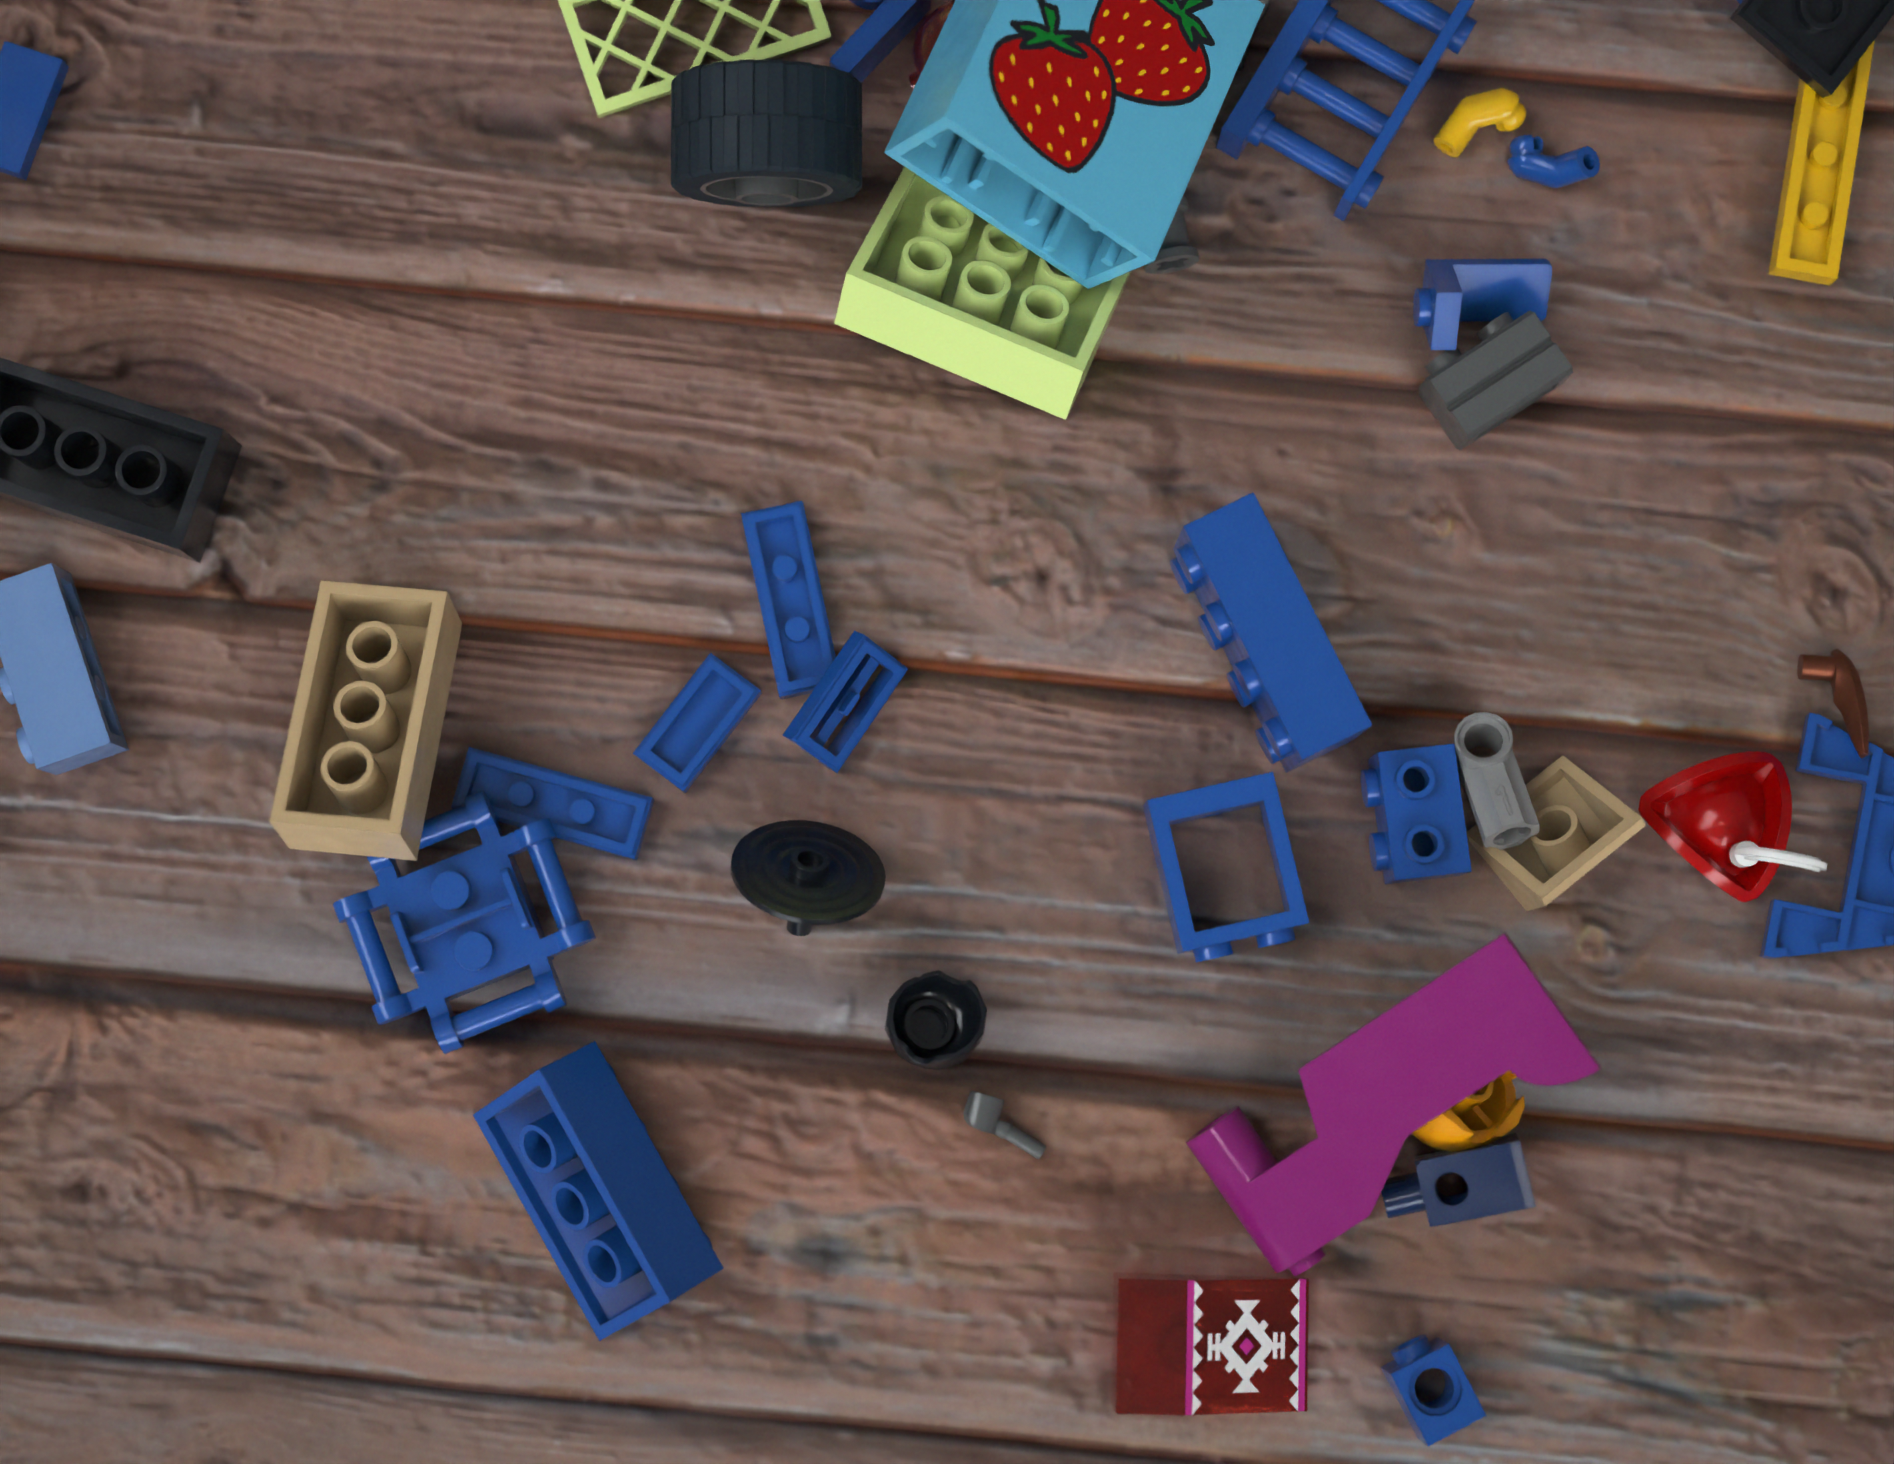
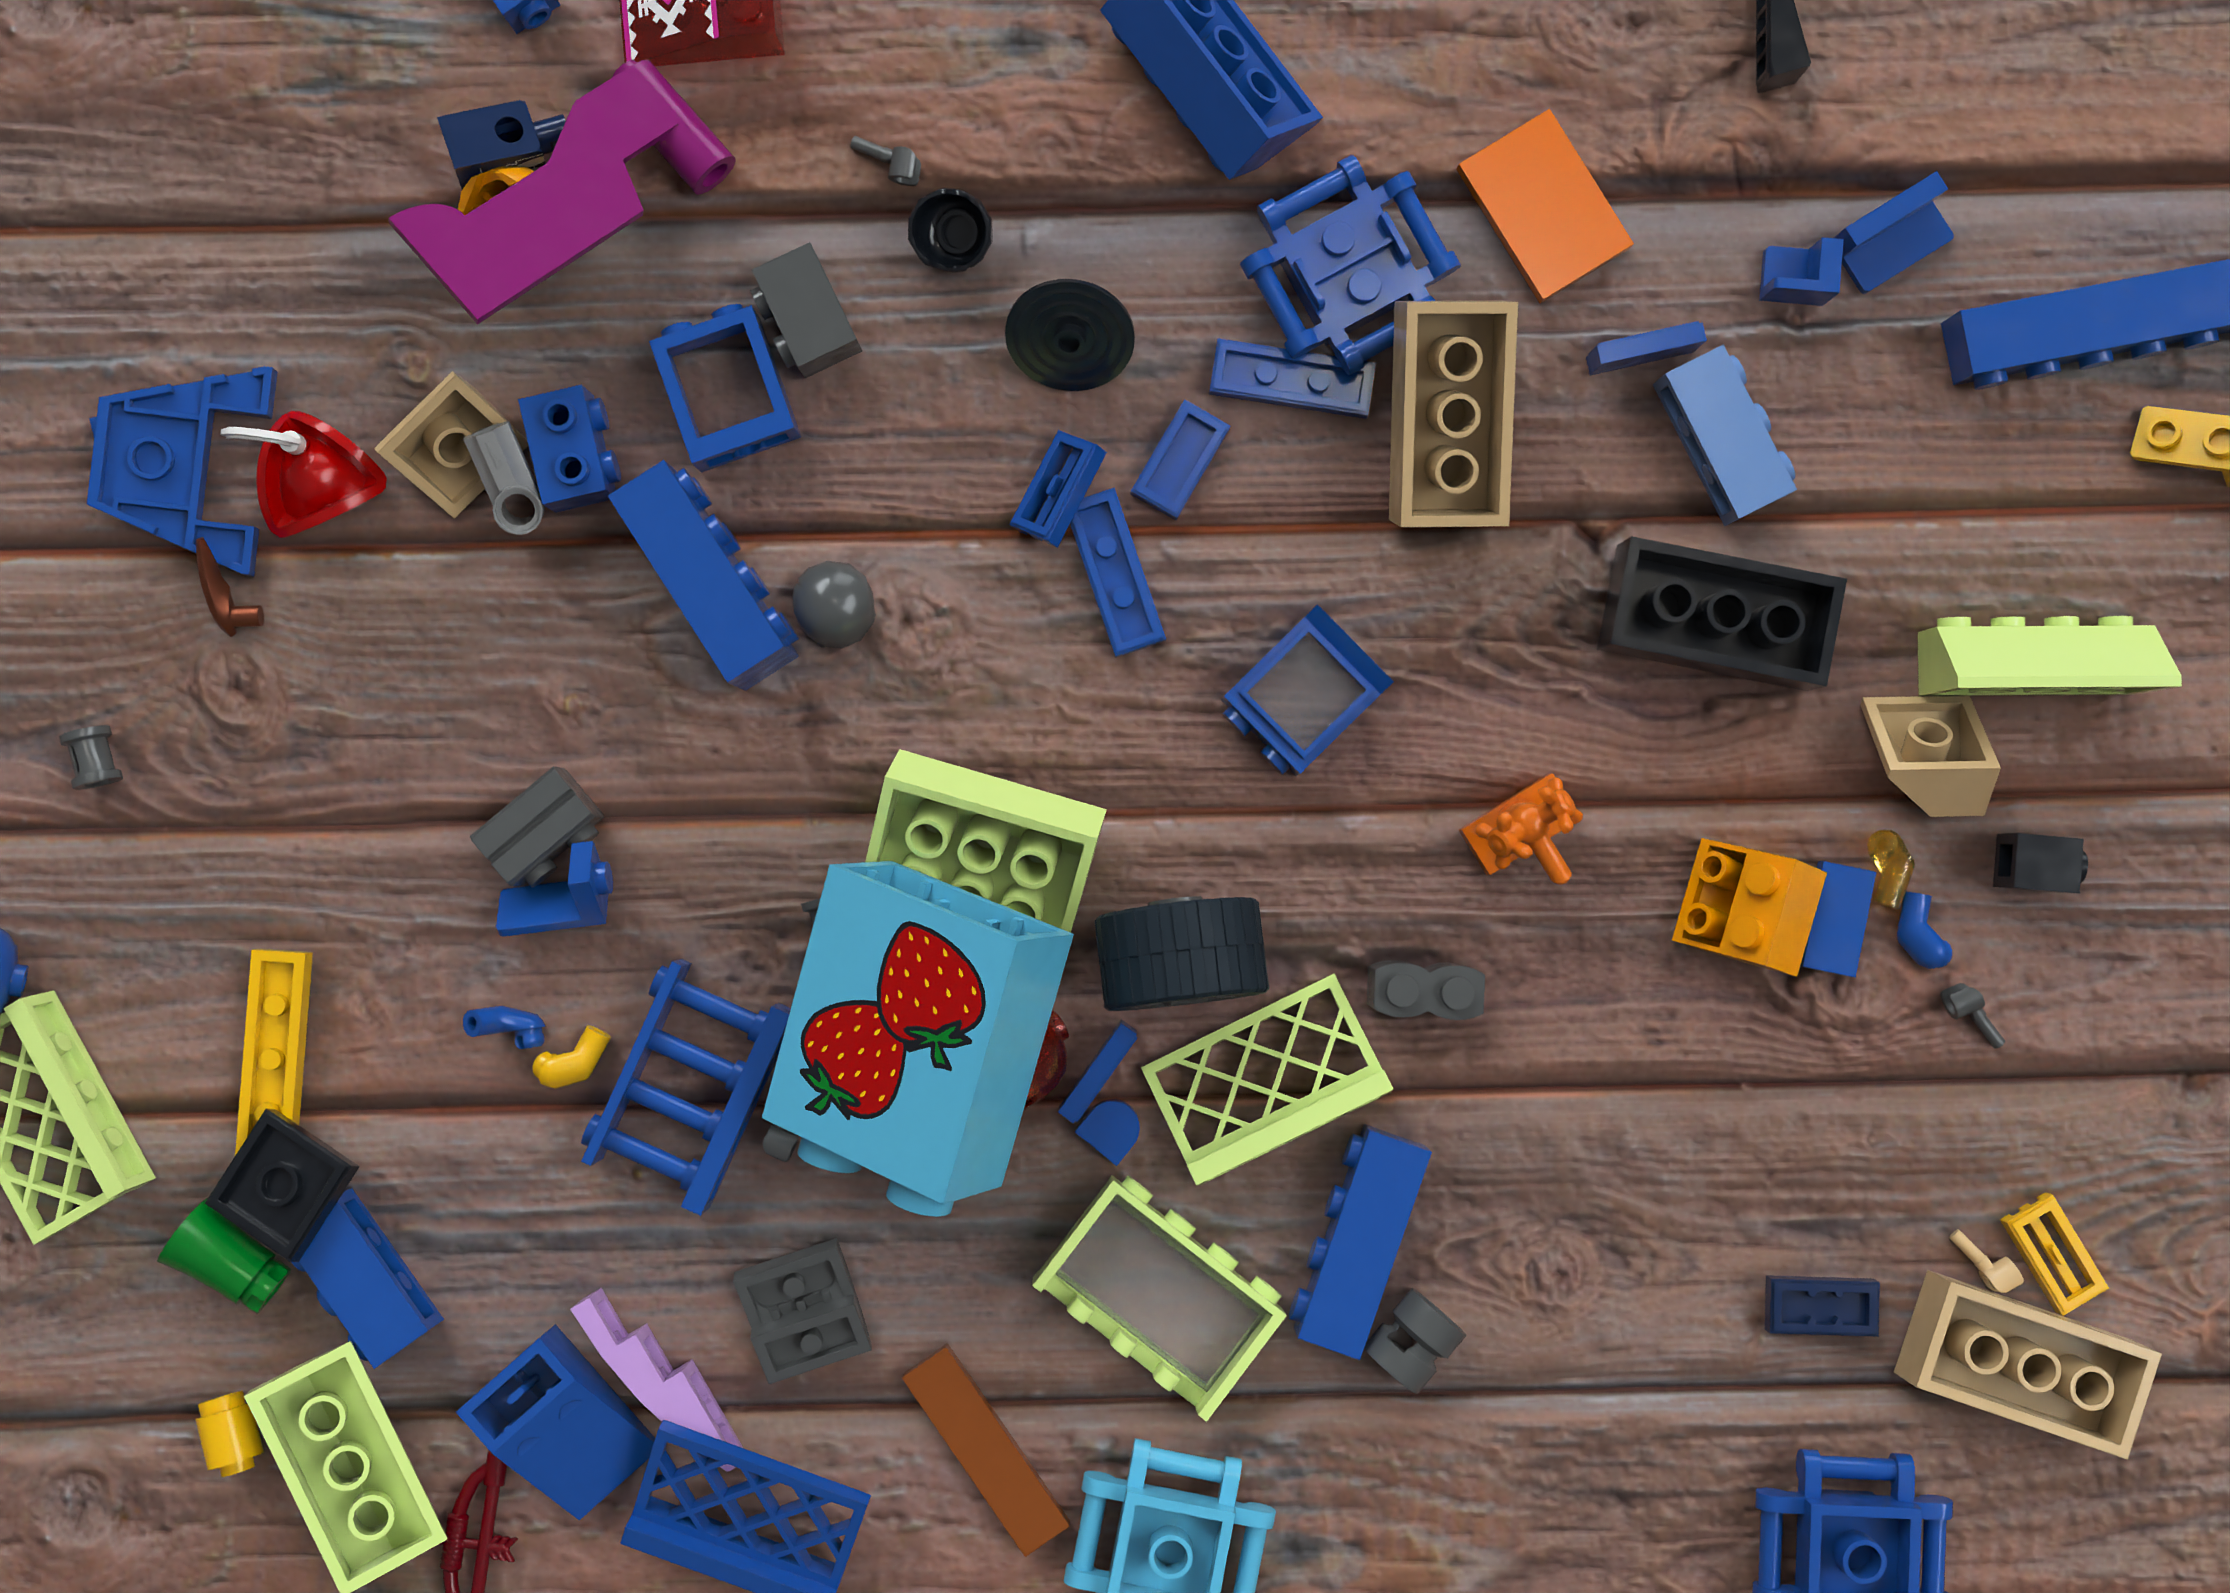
camera: 175 degrees right, 5 degrees up
(112, 130) = (1749, 906): none -> light orange slope
(129, 784) = (1646, 347): none -> blue tile
(223, 973) = (1544, 206): none -> orange tile
(354, 252) = (1523, 827): none -> orange piece
(485, 79) = (1440, 988): none -> dark grey brick
(589, 429) = (1305, 692): none -> window
(1121, 945) = (805, 310): none -> dark grey brick
(1125, 601) = (833, 604): none -> dark grey hair

